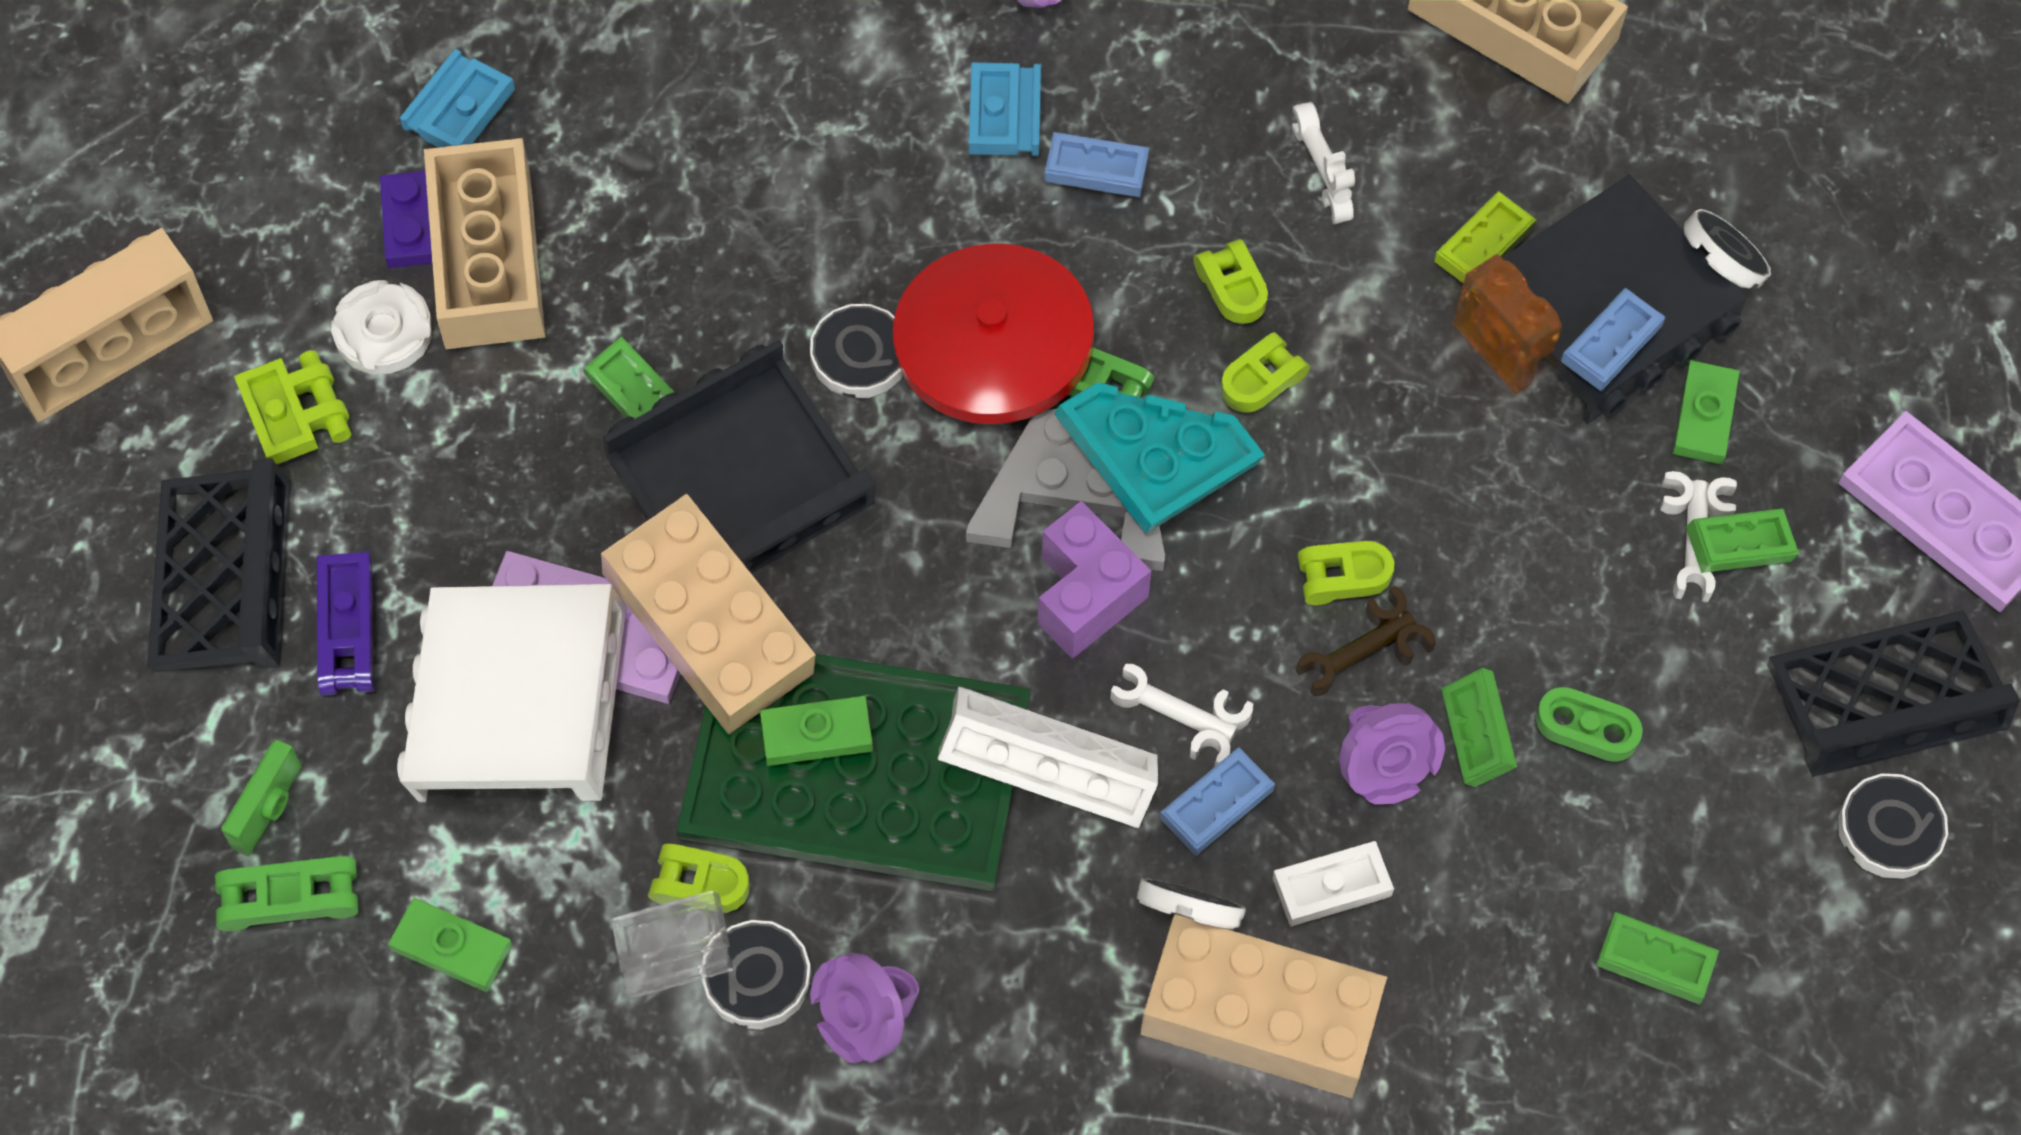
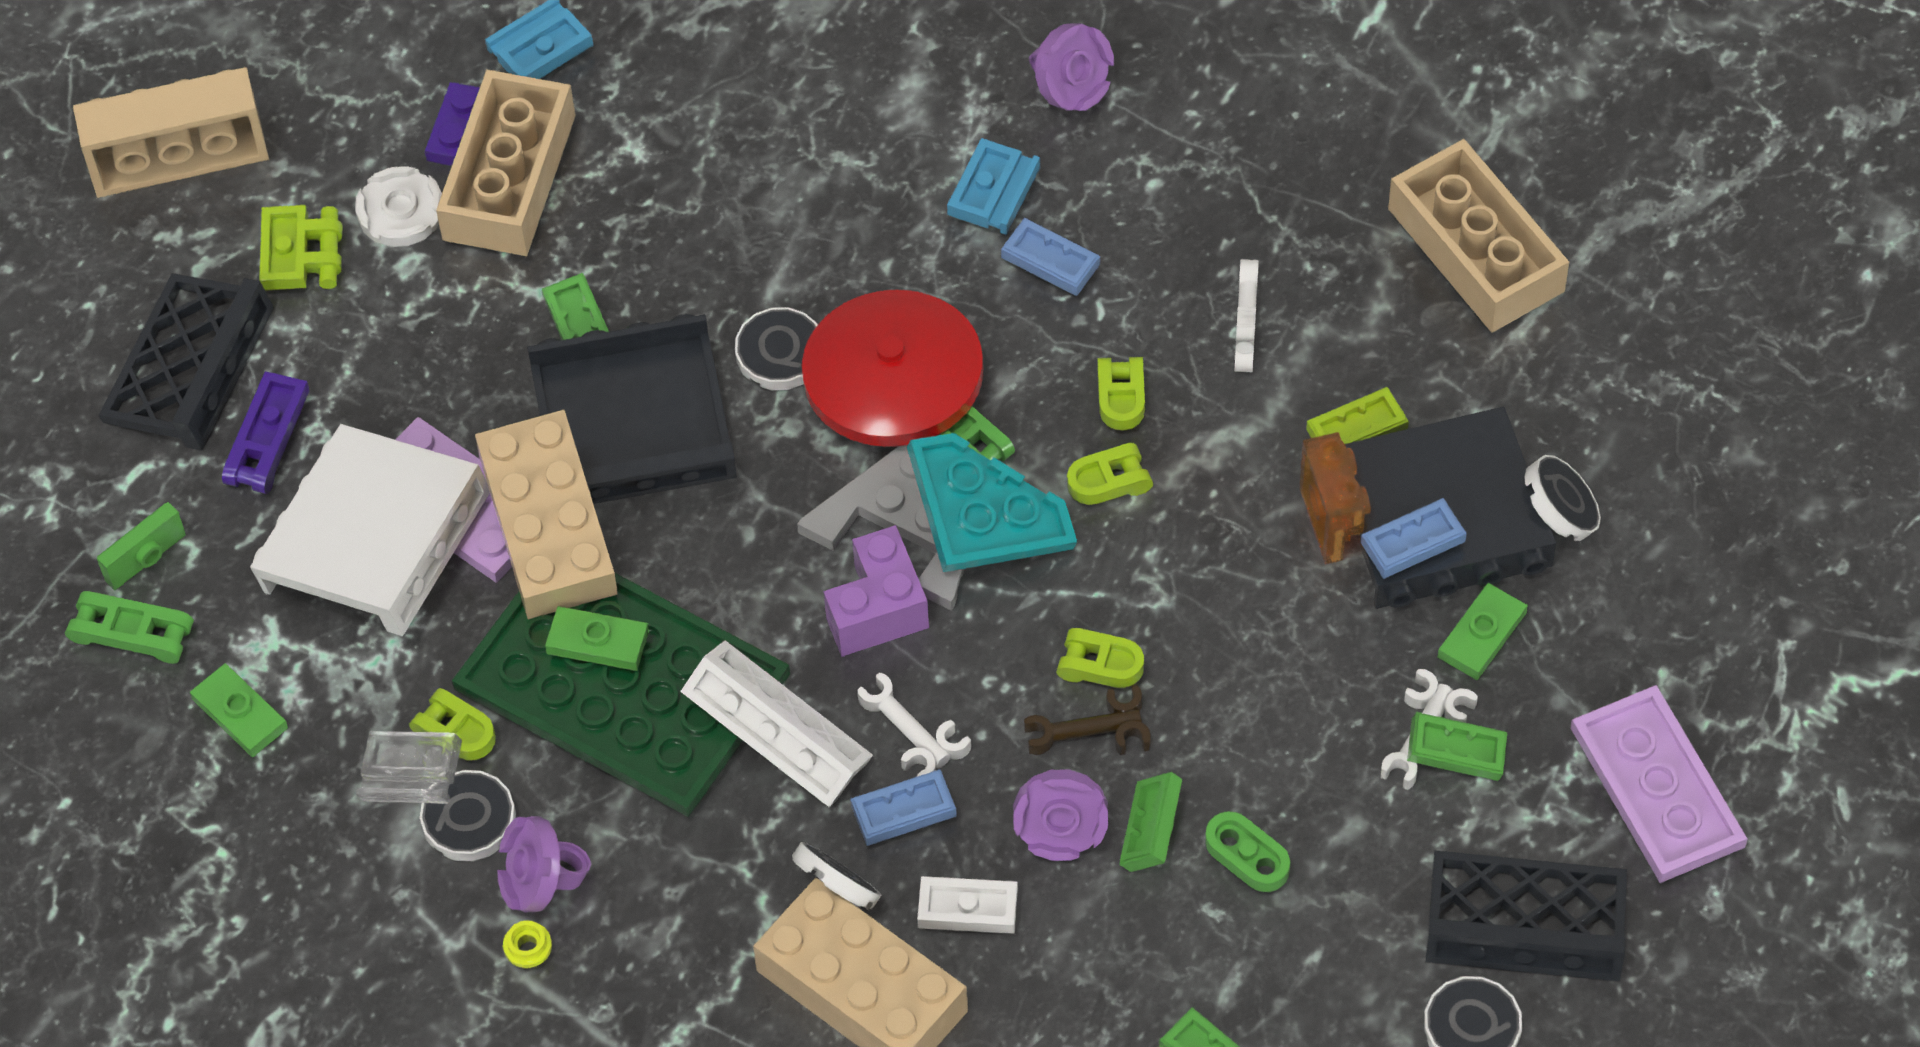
camera: 25 degrees right, 5 degrees down
(886, 1080) = (527, 932): none -> neon yellow plate

